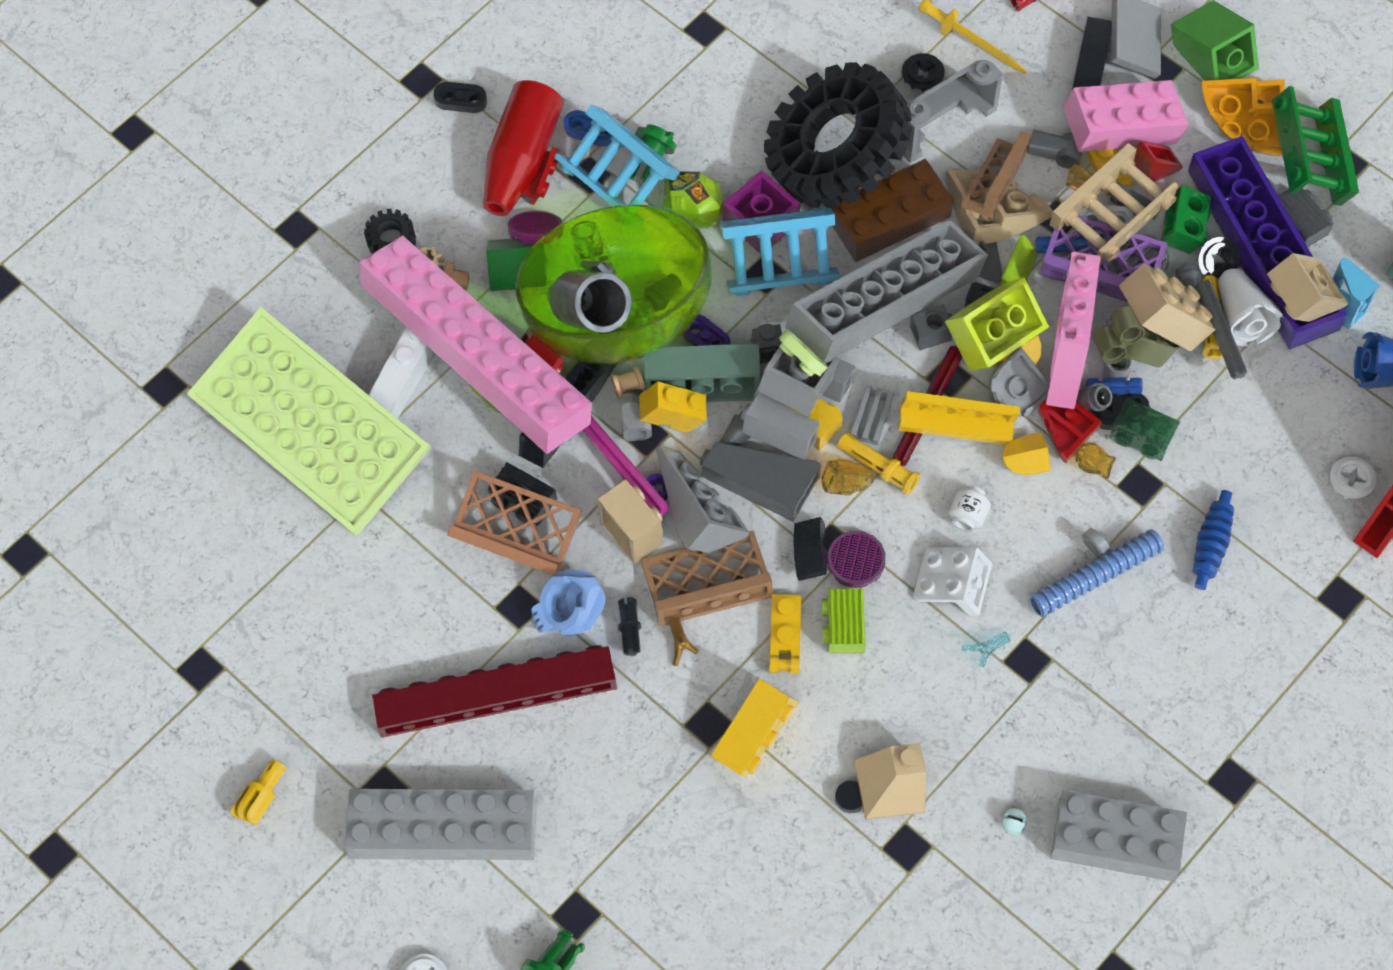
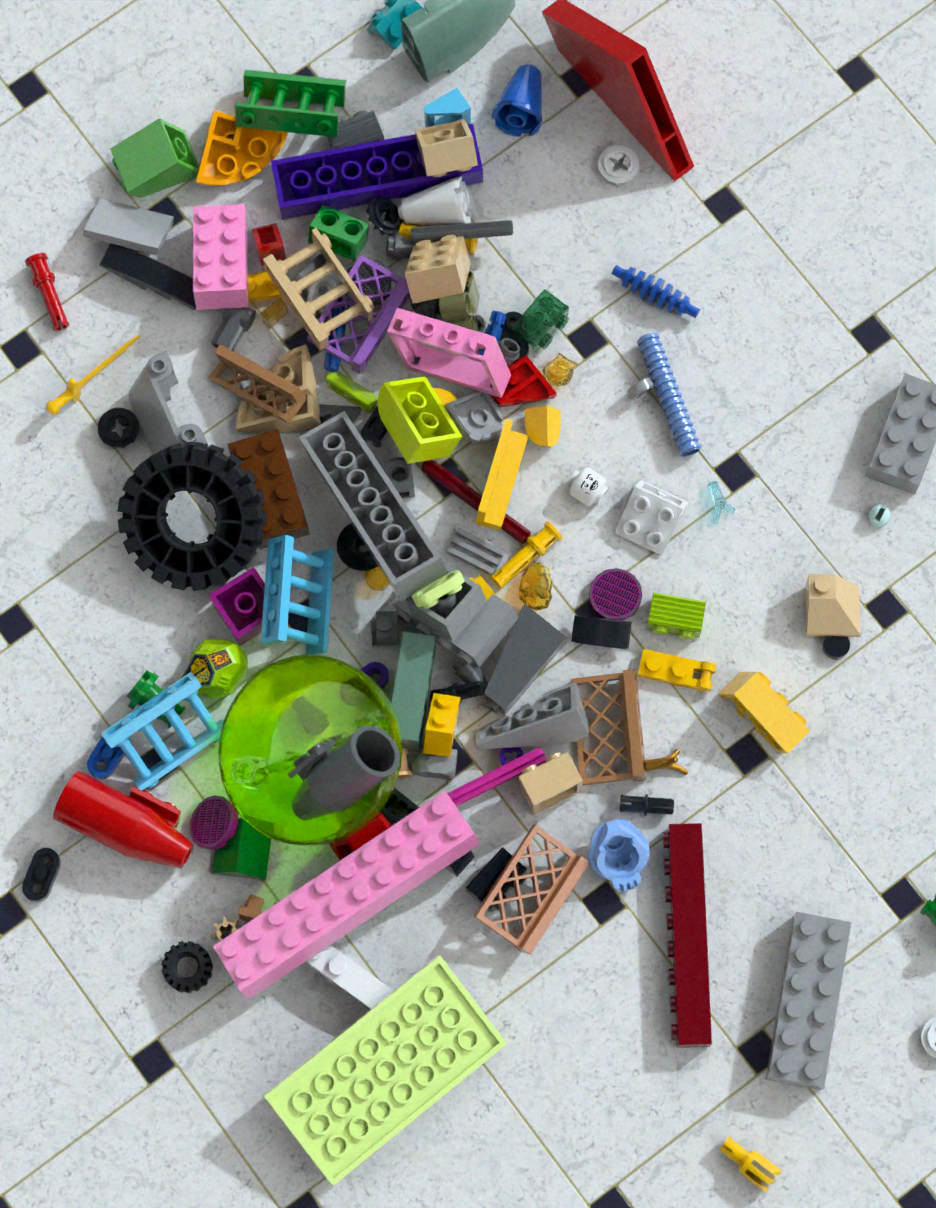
camera: 80 degrees left, 10 degrees up
(715, 422) = (463, 691): none -> black axle

